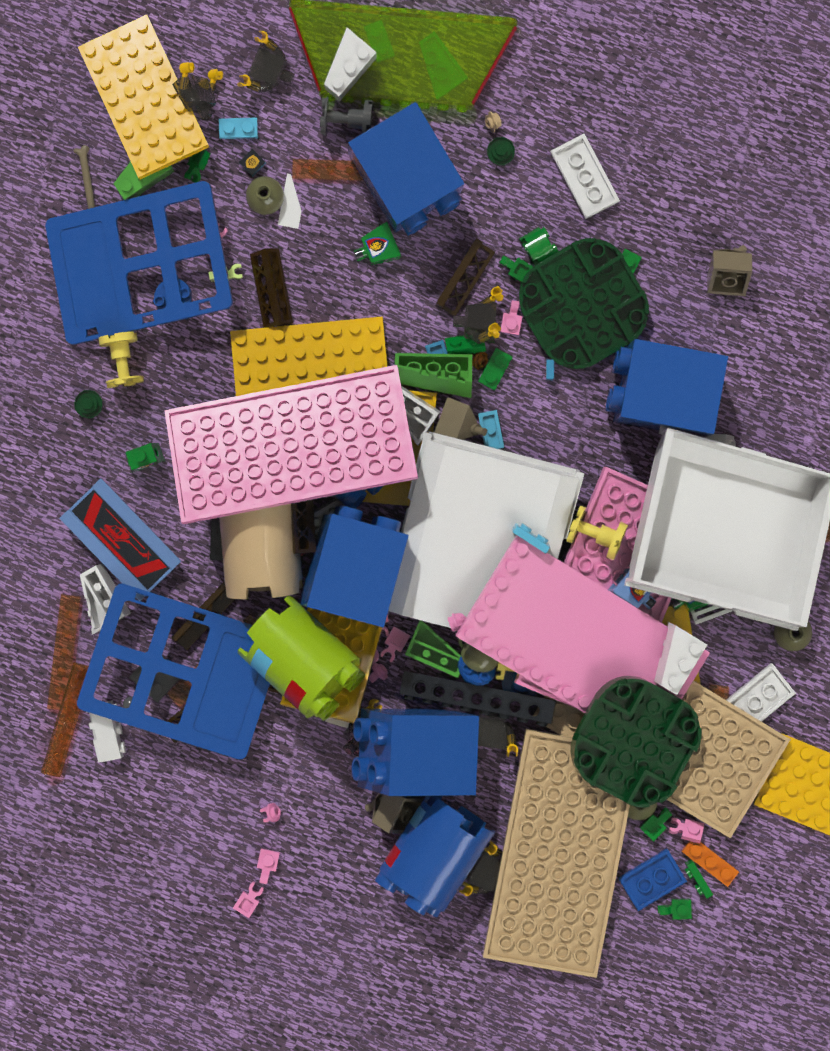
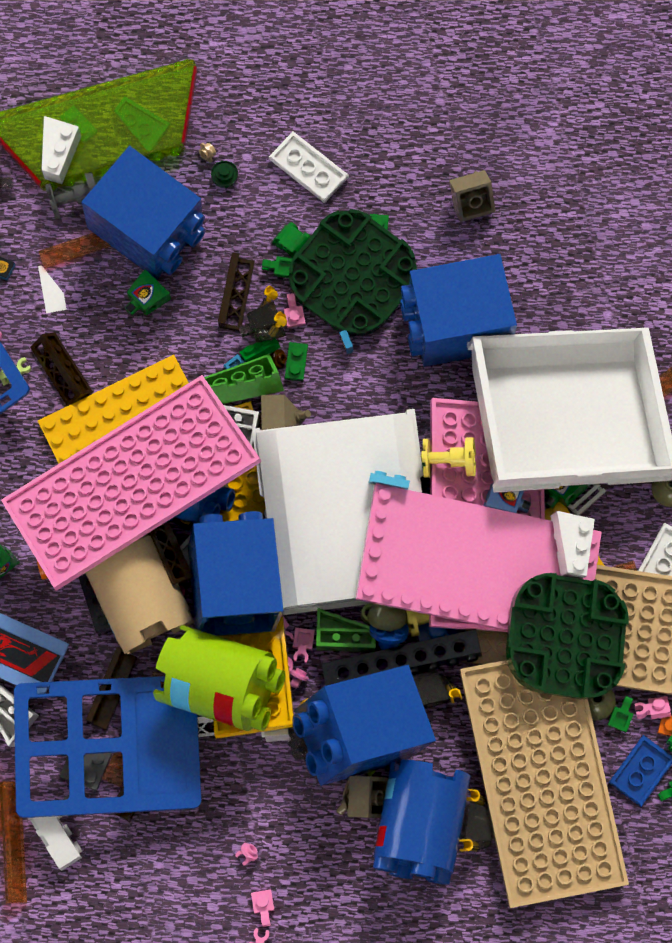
camera: 15 degrees left, 15 degrees down
(269, 203) = (27, 297): olive piece -> none
(456, 621) = (350, 588): bright pink plate -> none
(491, 422) = (317, 413): medium azure plate -> none

